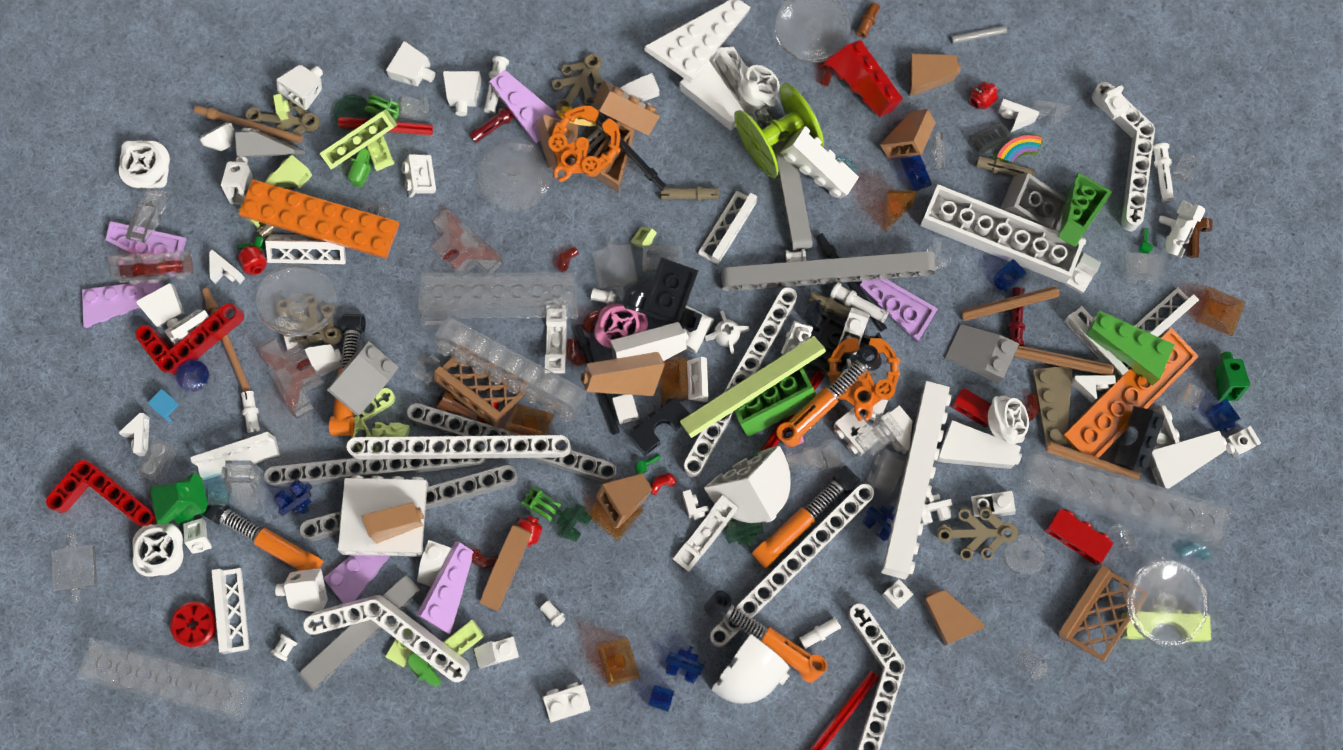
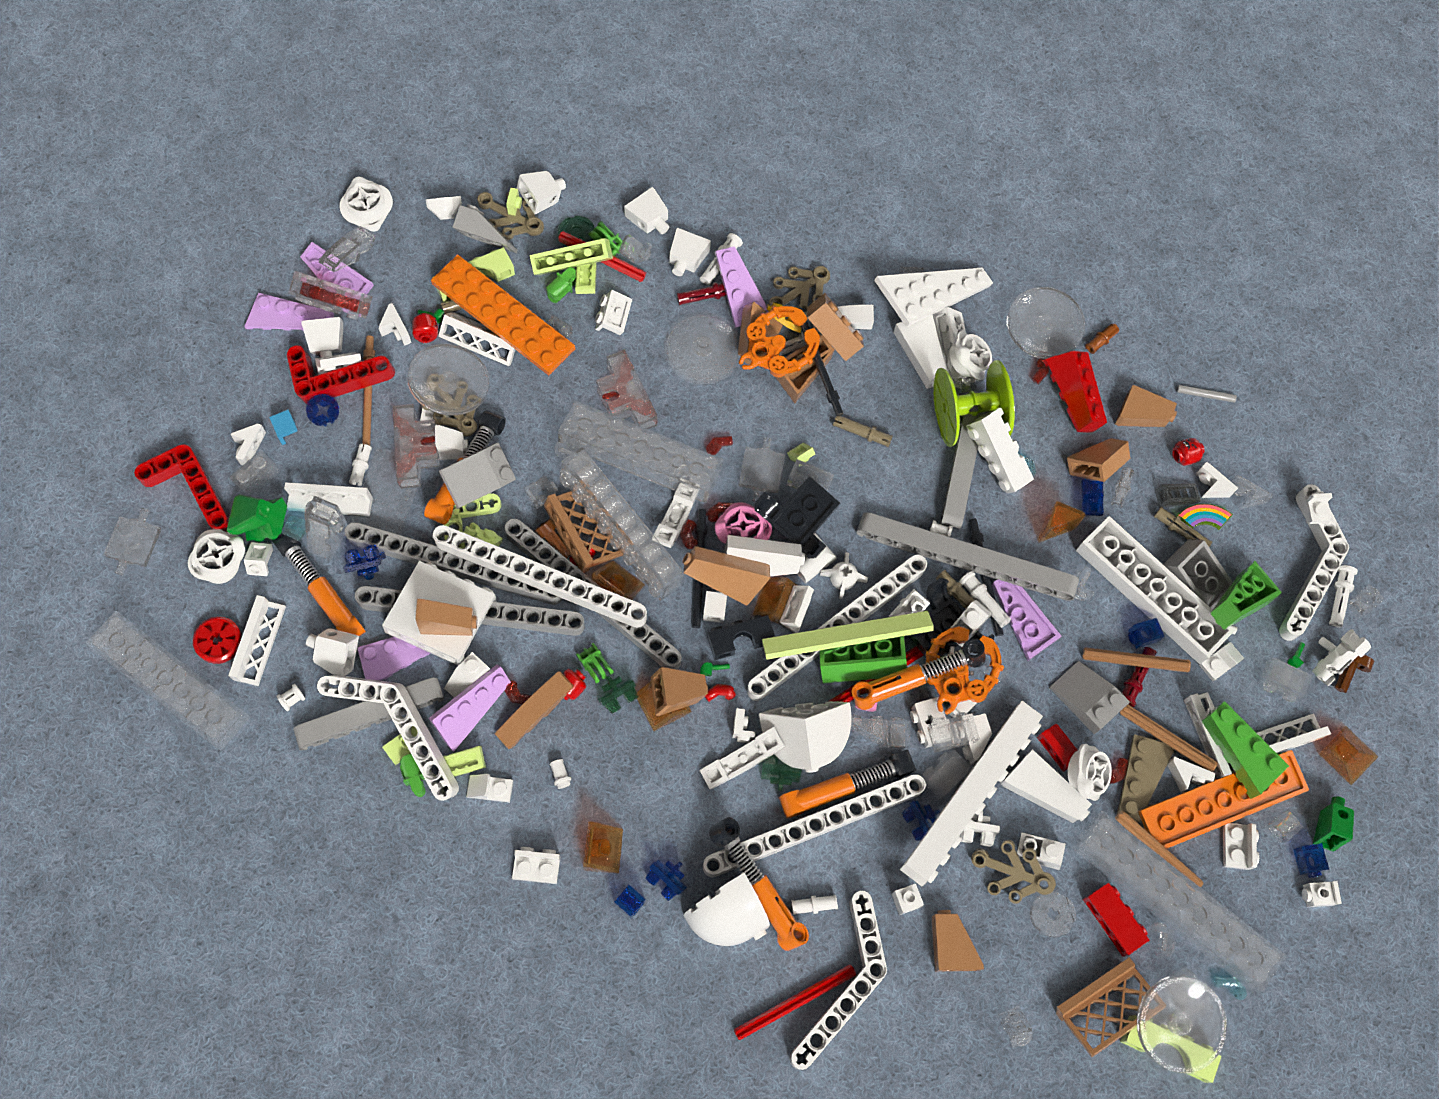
camera: 15 degrees right, 5 degrees down
(215, 114) = (450, 185): medium nougat bar -> none
(236, 180) = (442, 250): white torso -> none
(603, 296) = (739, 493): white pin -> none
(733, 230) = (889, 480): white fence -> none
(1138, 455) = (1209, 861): black arch -> none
(1181, 459) = (1249, 886): white slope -> none

